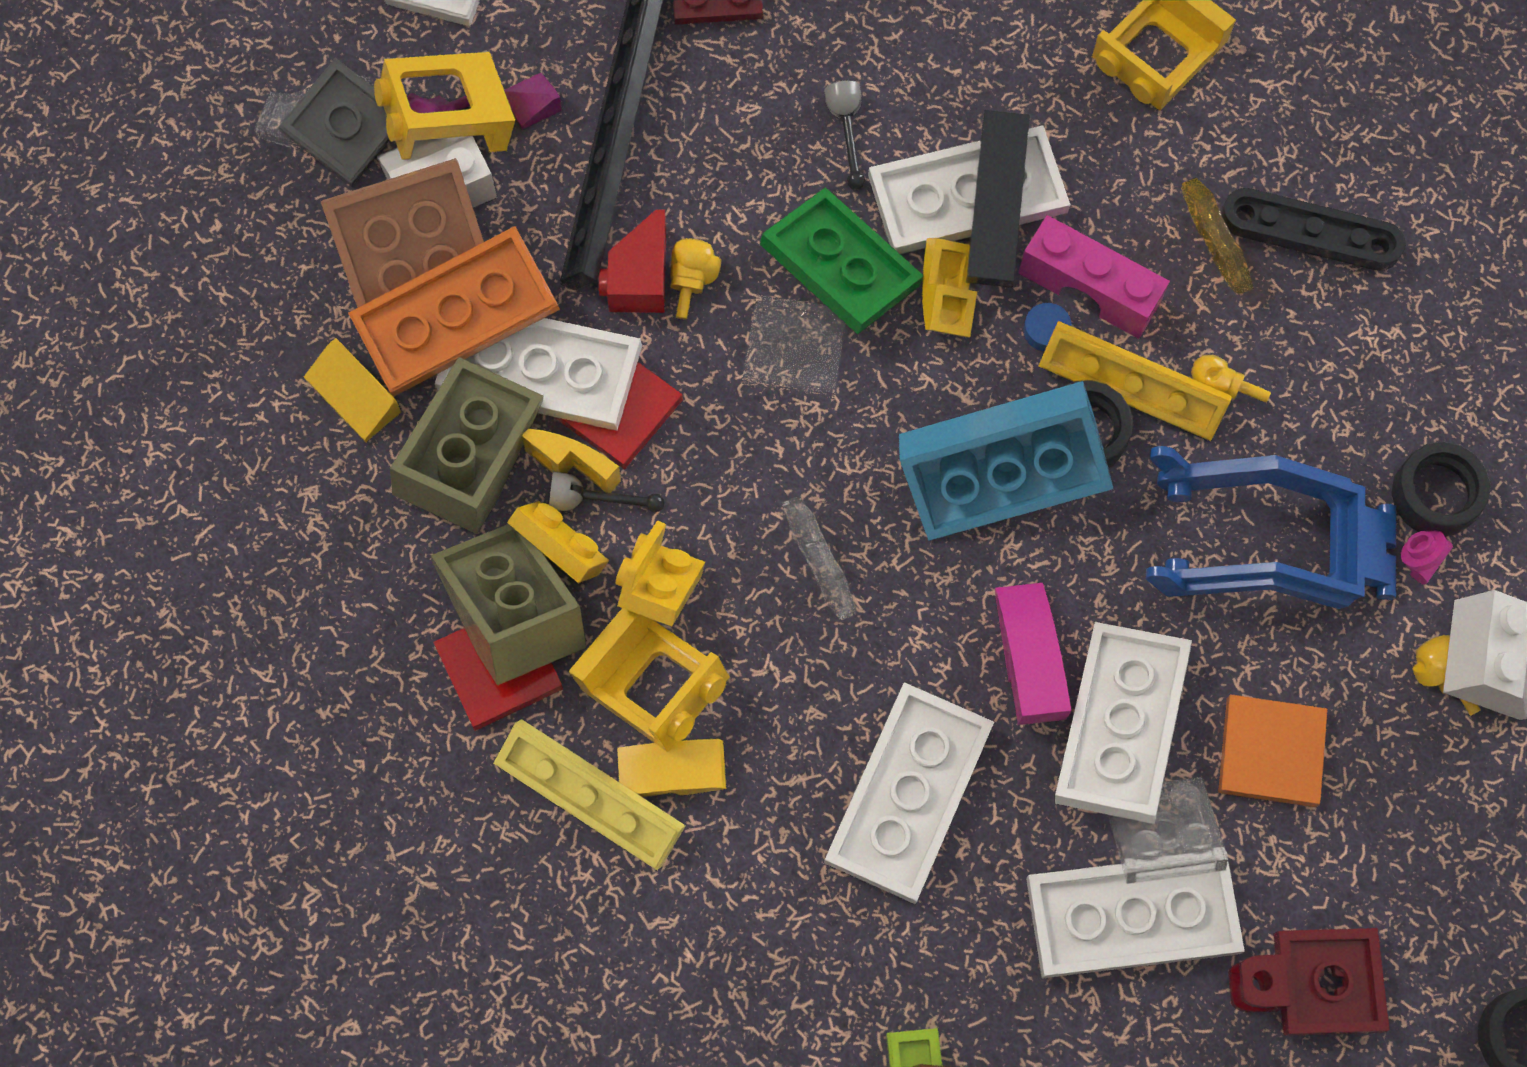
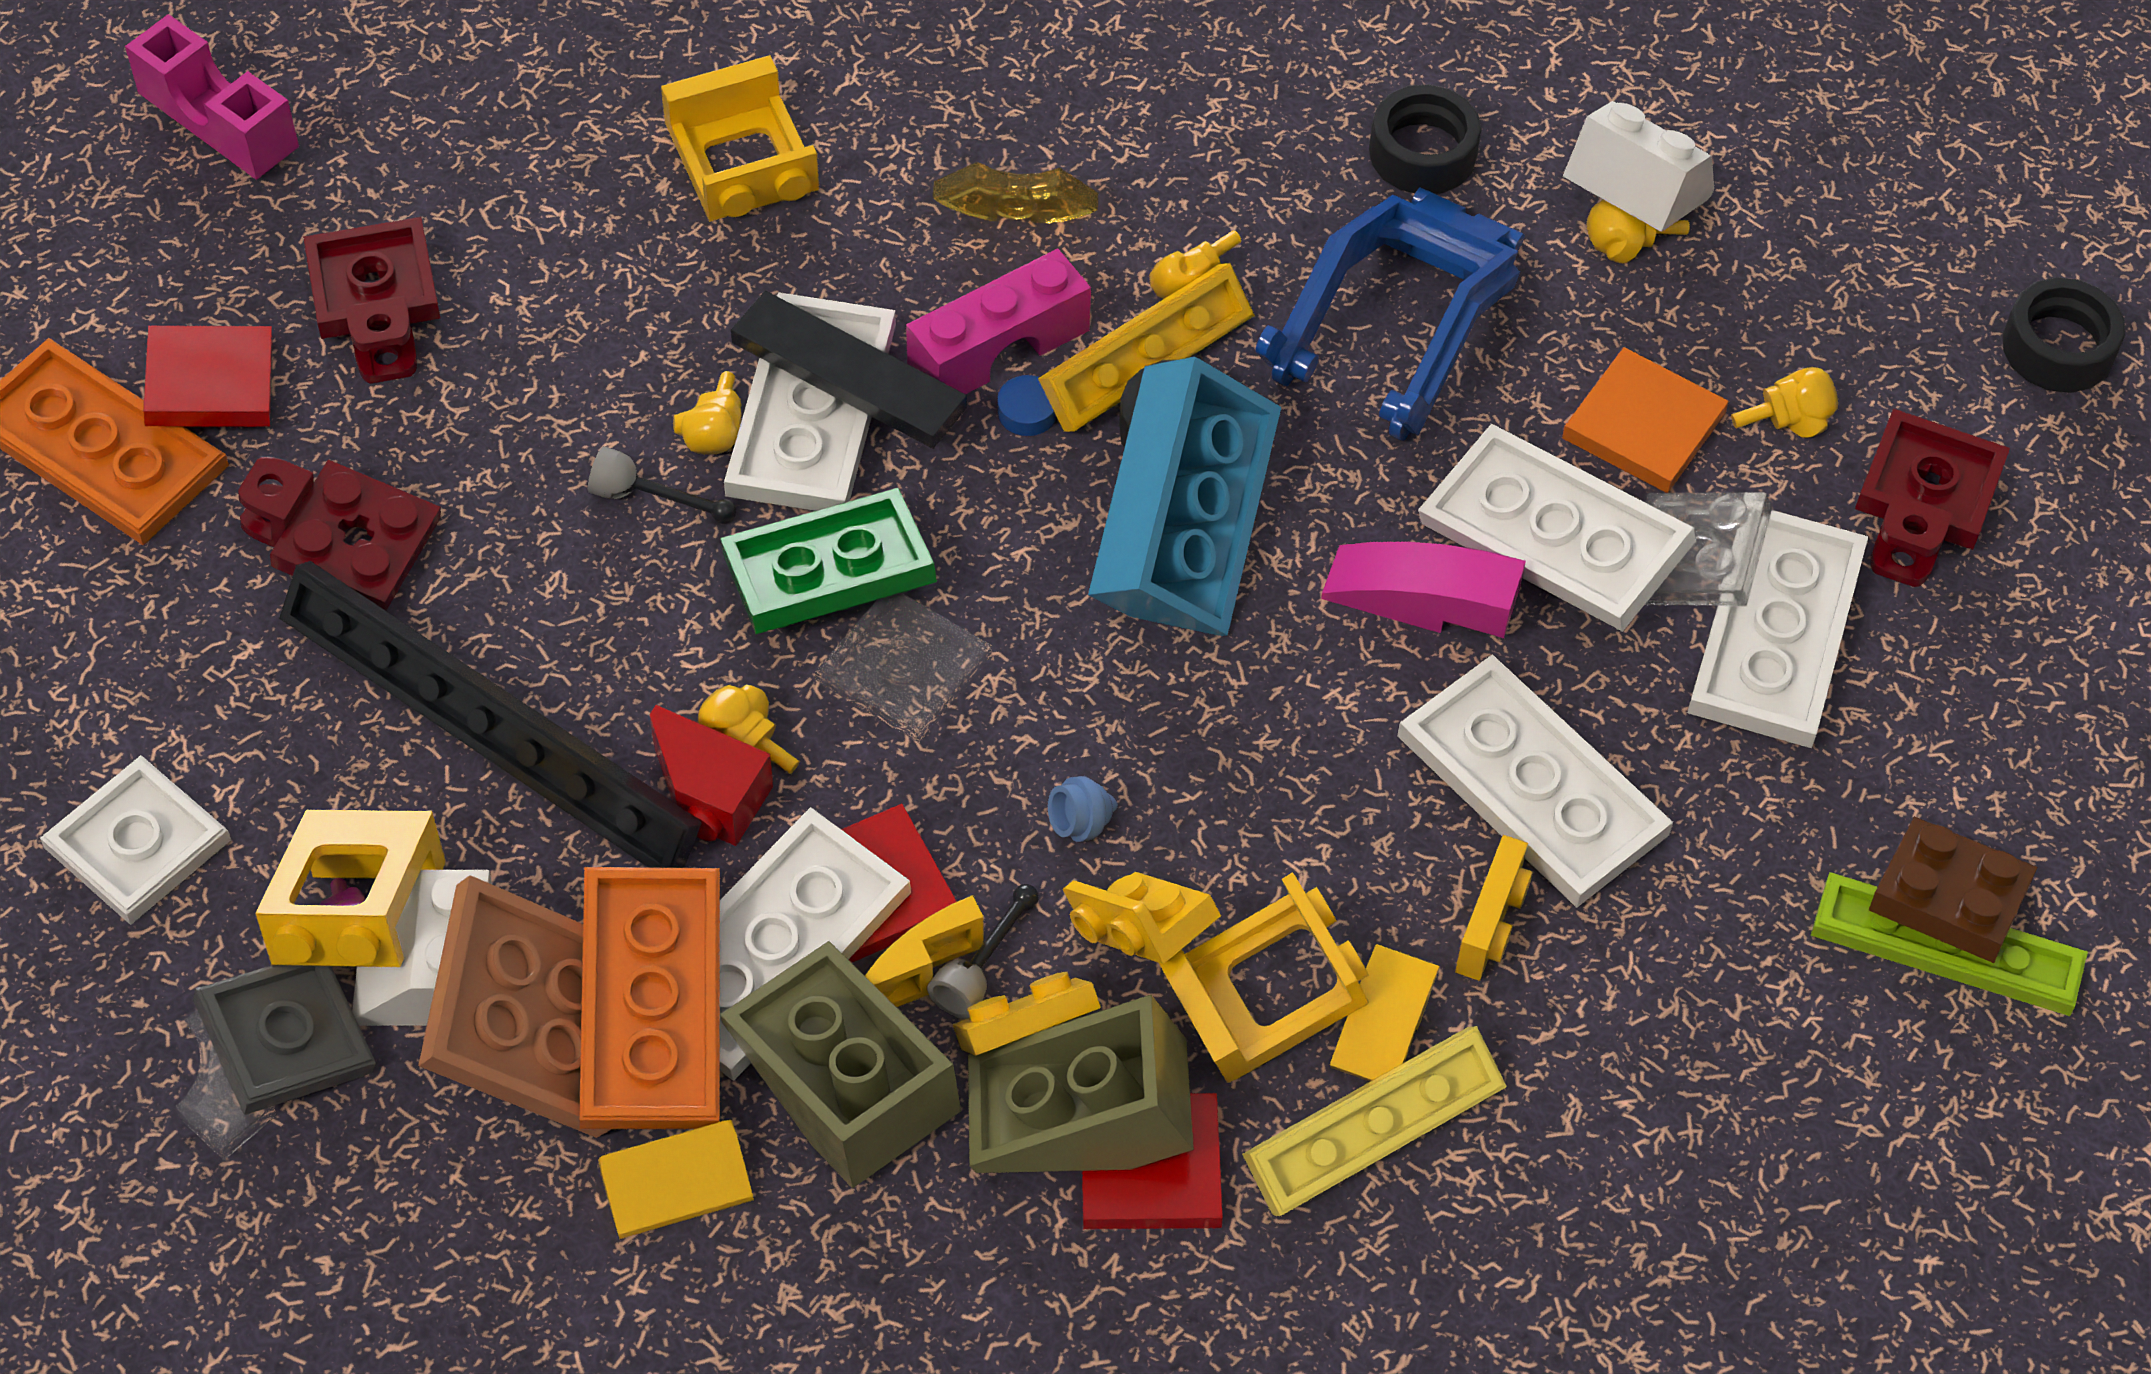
camera: 65 degrees left, 15 degrees down
(533, 100) = (391, 790): magenta slope -> none
(735, 507) = (1080, 808): none -> medium blue plate
(807, 804) = (1486, 932): none -> yellow plate
(819, 557) = (1174, 739): clear tile -> none
(918, 138) = (714, 420): none -> yellow piece
(945, 294) = (941, 483): yellow slope -> none
(1313, 229) = (1060, 107): black plate -> none
(1349, 855) = (1797, 401): none -> yellow piece
(1425, 553) = (1489, 186): dark pink plate -> none

